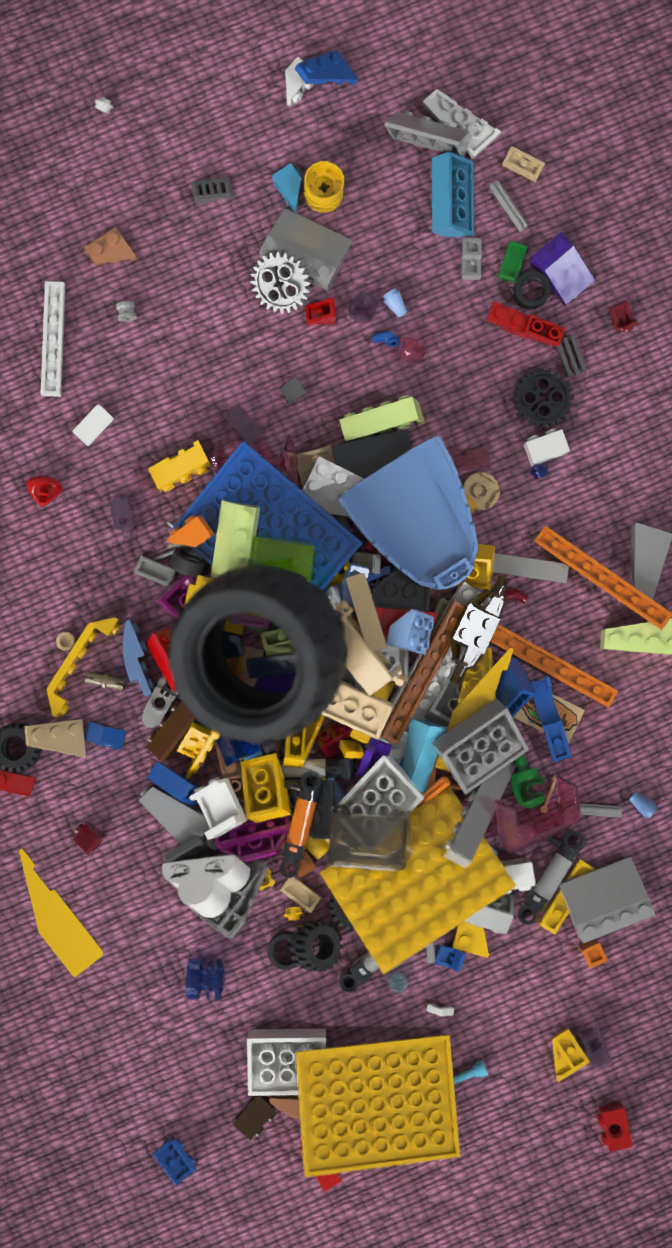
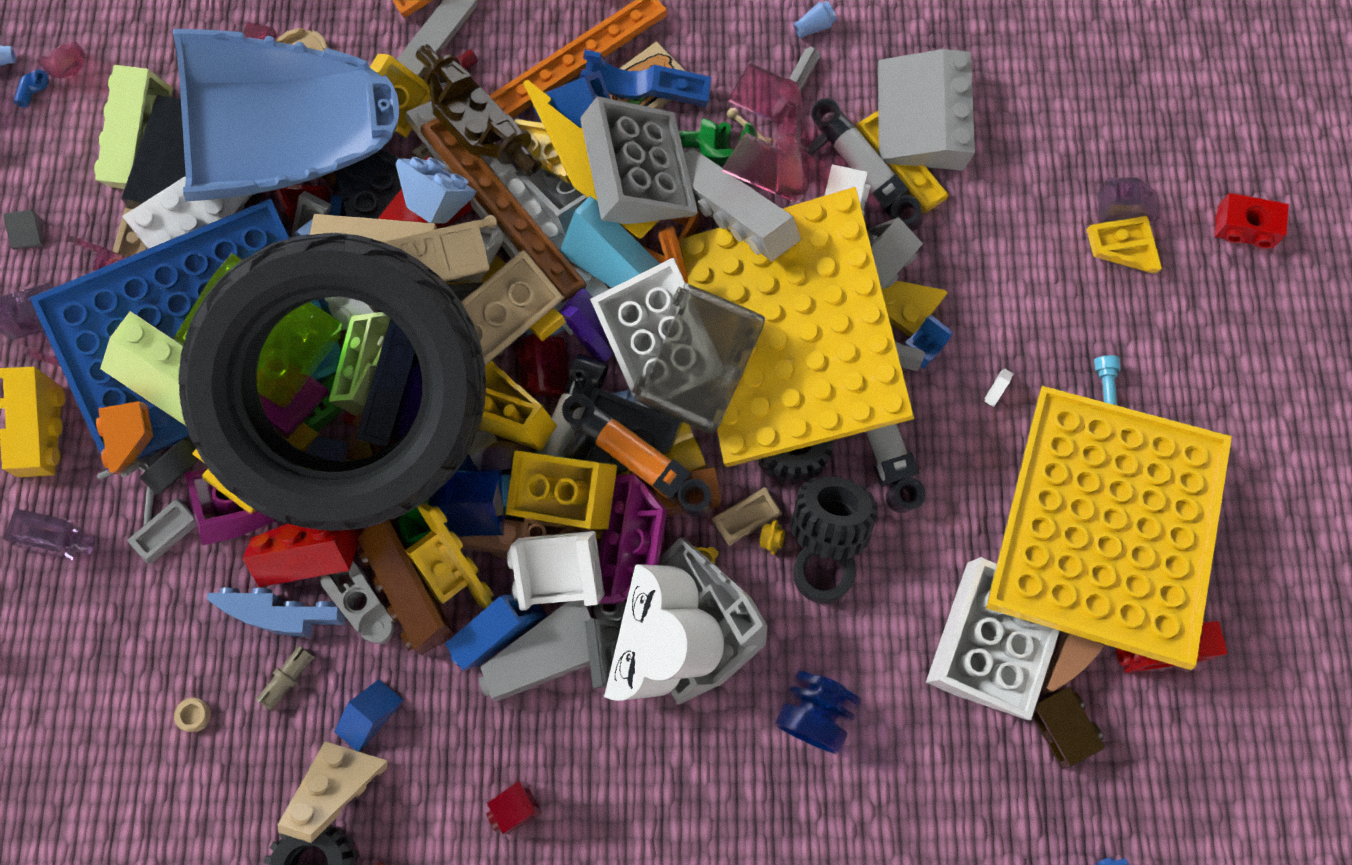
camera: 65 degrees left, 15 degrees down
(57, 702) = (199, 640): yellow slope -> none
(351, 749) = (564, 350): yellow plate -> none
(398, 982) = (937, 430): clear light blue plate -> none
(593, 953) = (993, 150): orange panel -> none

